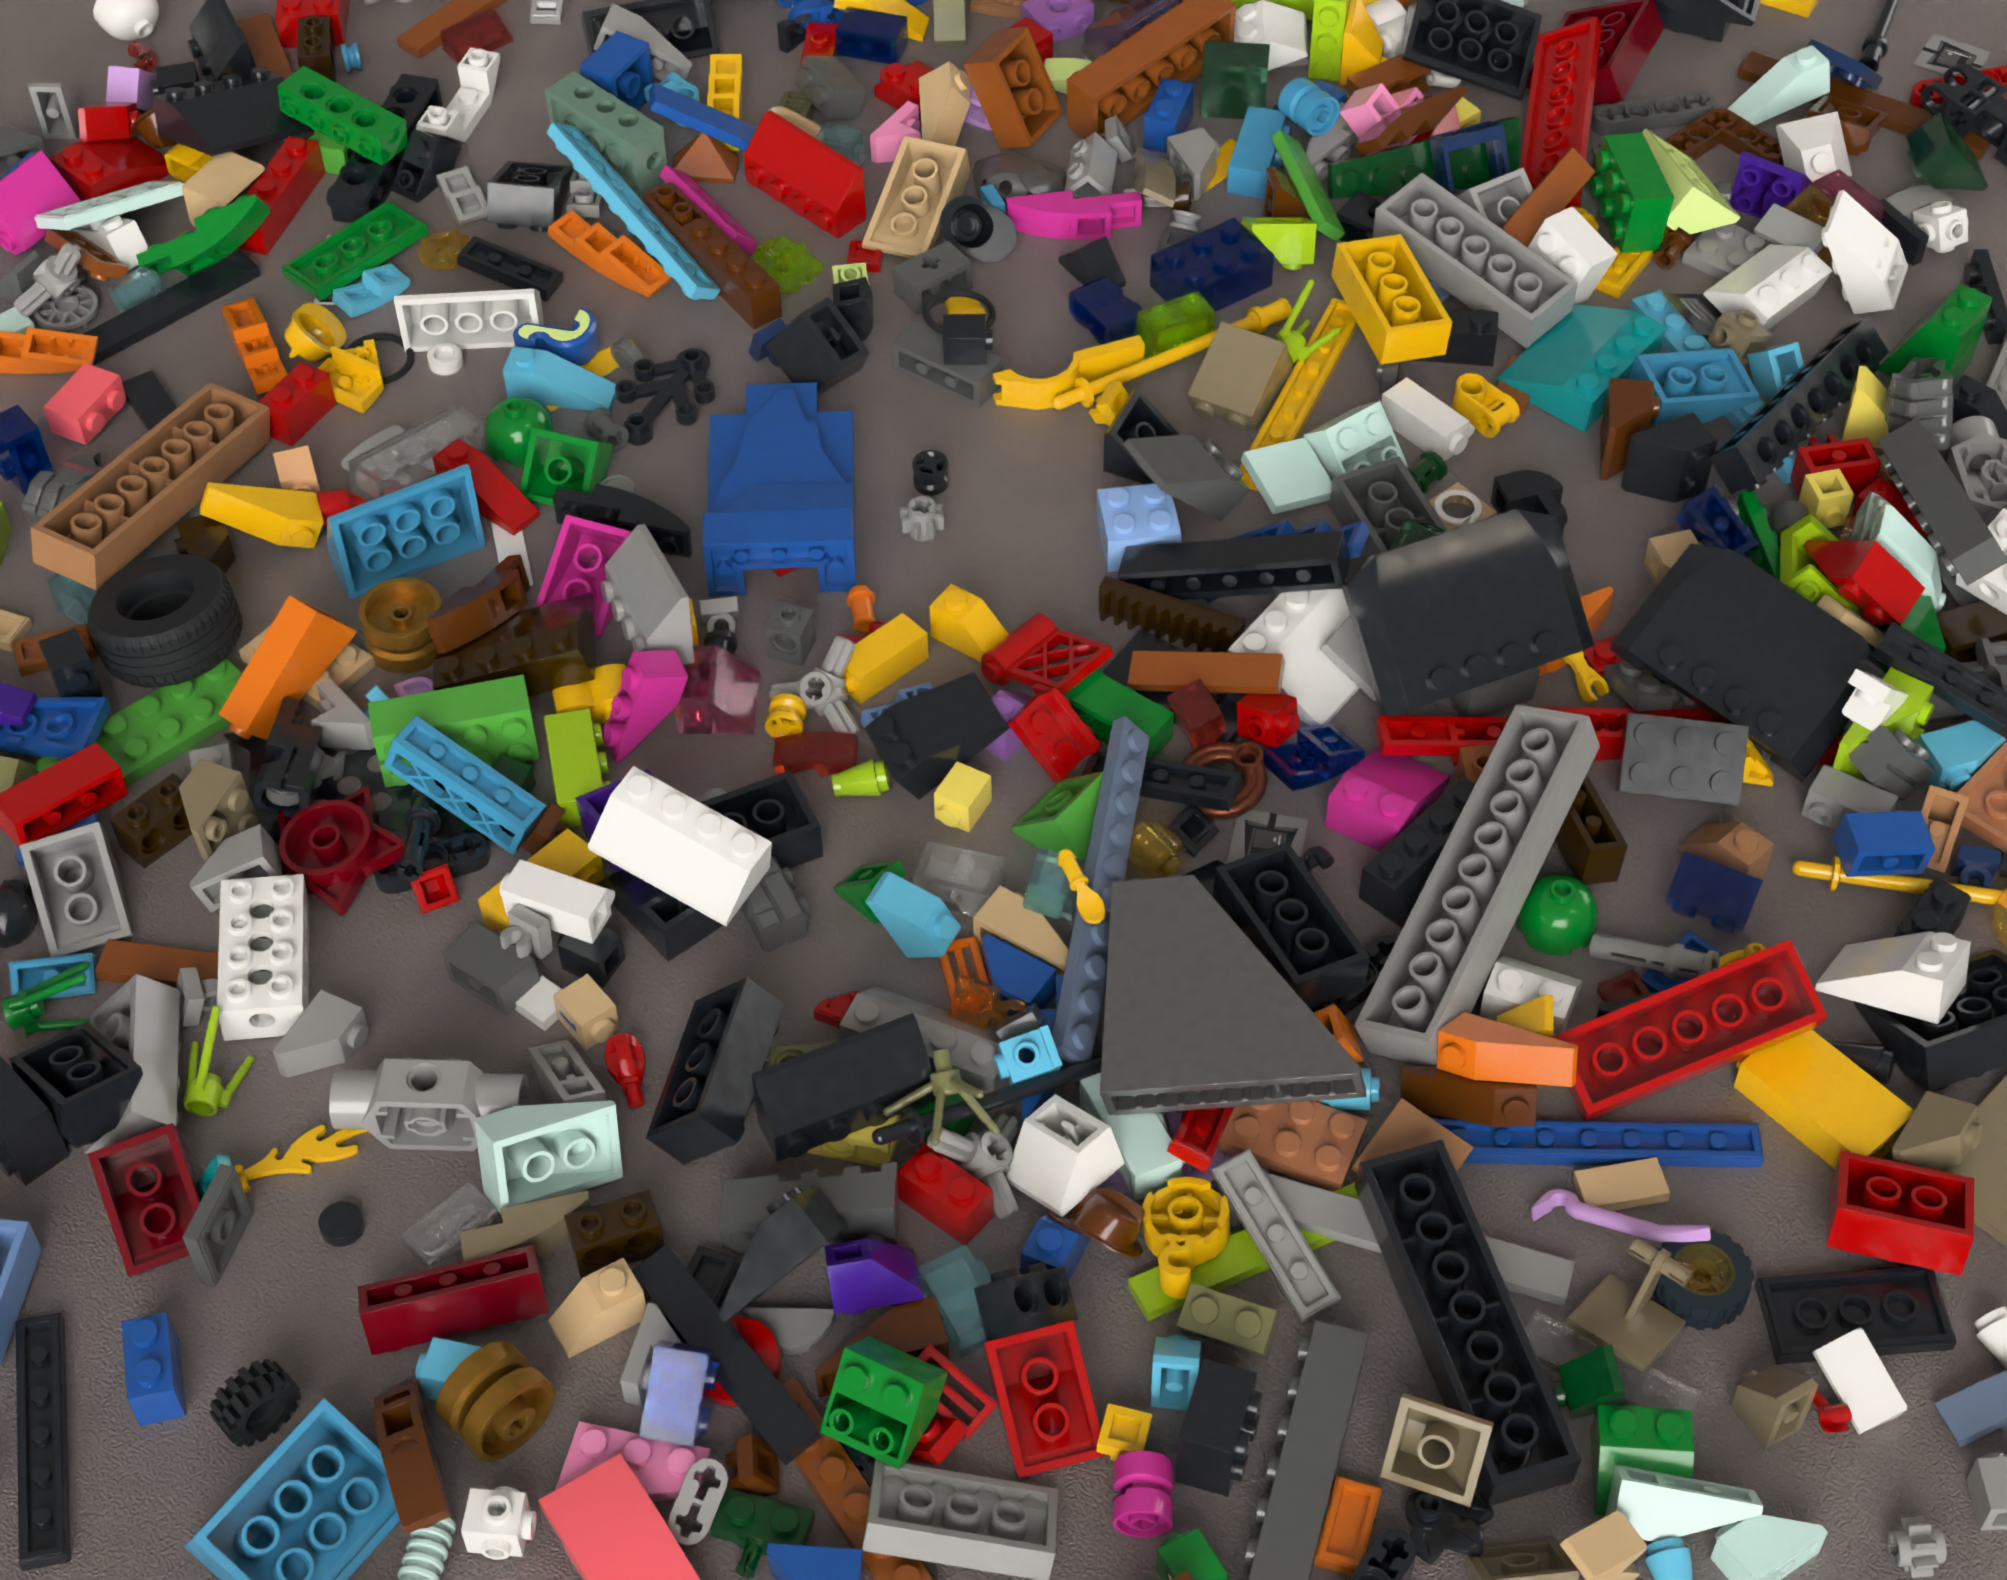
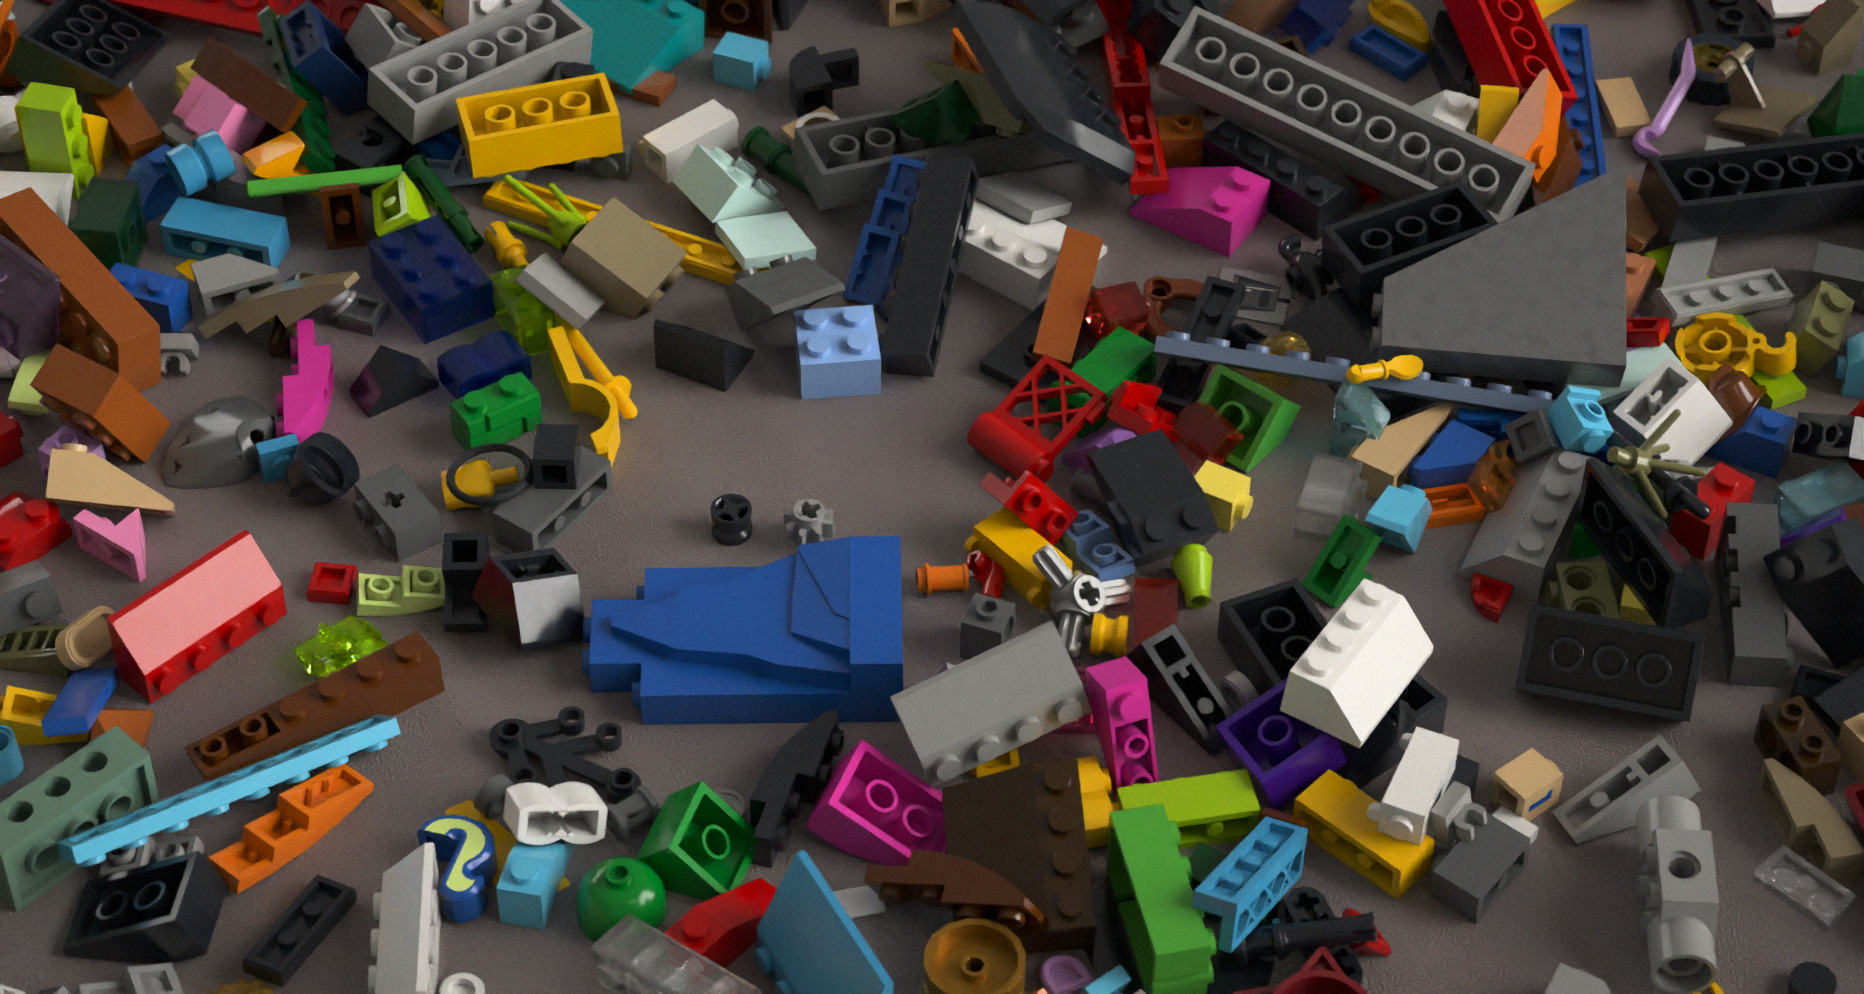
camera: 90 degrees left, 5 degrees down
(547, 1150) = (1737, 799): light aqua slope -> none
(587, 374) = (561, 812): none -> white brick
(626, 1065) = (1588, 754): red piece -> none
(709, 207) = (169, 754): dark pink plate -> none
(725, 758) = (1182, 686): none -> black slope
(762, 338) = (492, 658): dark blue tile -> none
(843, 140) = (126, 586): clear light blue brick -> none
(914, 195) = (287, 526): tan slope -> none
(921, 643) = (1032, 503): none -> red bracket
(964, 622) = (962, 498): yellow slope -> none
(1036, 782) = (1206, 432): none -> clear red brick
(1046, 320) = (496, 412): none -> green brick
(1091, 168) = (236, 366): light grey brick -> none
(1109, 403) = (643, 365): yellow tile -> none
(1168, 616) = (968, 337): dark brown gear -> none
(1182, 335) = (560, 291): none -> light grey tile
(1267, 718) = (1118, 263): red brick -> none
(1295, 275) = (441, 200): none -> dark green pin
(1317, 756) = (1164, 240): clear blue slope -> none
(1327, 150) = (277, 158): none -> light orange slope
(1482, 406) = (671, 99): yellow piece -> none
(1548, 447) = (741, 61): none -> medium azure brick
(1622, 987) = (1418, 84): clear red tile -> none
(1672, 960) = (1398, 41): light grey pin -> none

